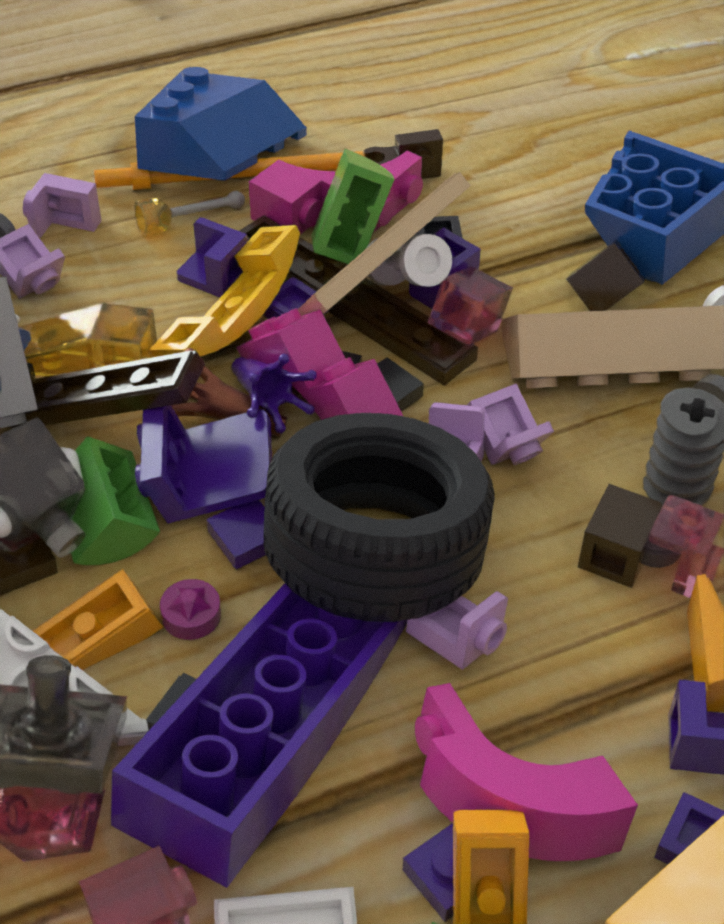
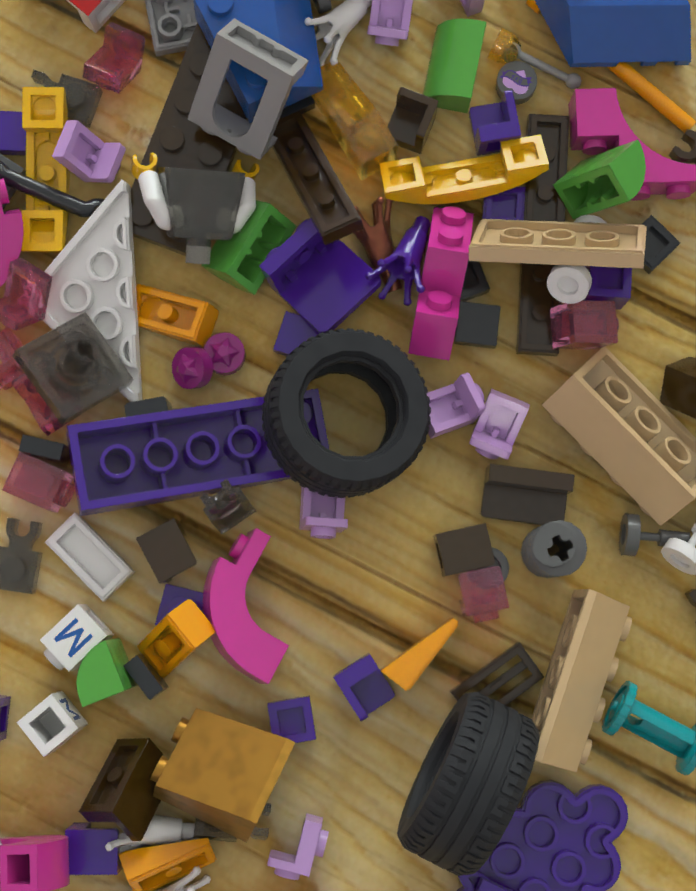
camera: 50 degrees right, 35 degrees up
(99, 855) = (45, 449): none -> black tile
(127, 252) = (454, 63): none -> bright green brick
(143, 288) = (412, 119): none -> dark brown panel
(174, 643) = (192, 367): none -> magenta tile
(182, 229) = (519, 78): none -> dark grey tile
(365, 819) = (167, 550): none -> dark brown panel
(370, 708) = (227, 507): none -> clear smoke plate
(596, 453) = (525, 494): none -> dark brown panel

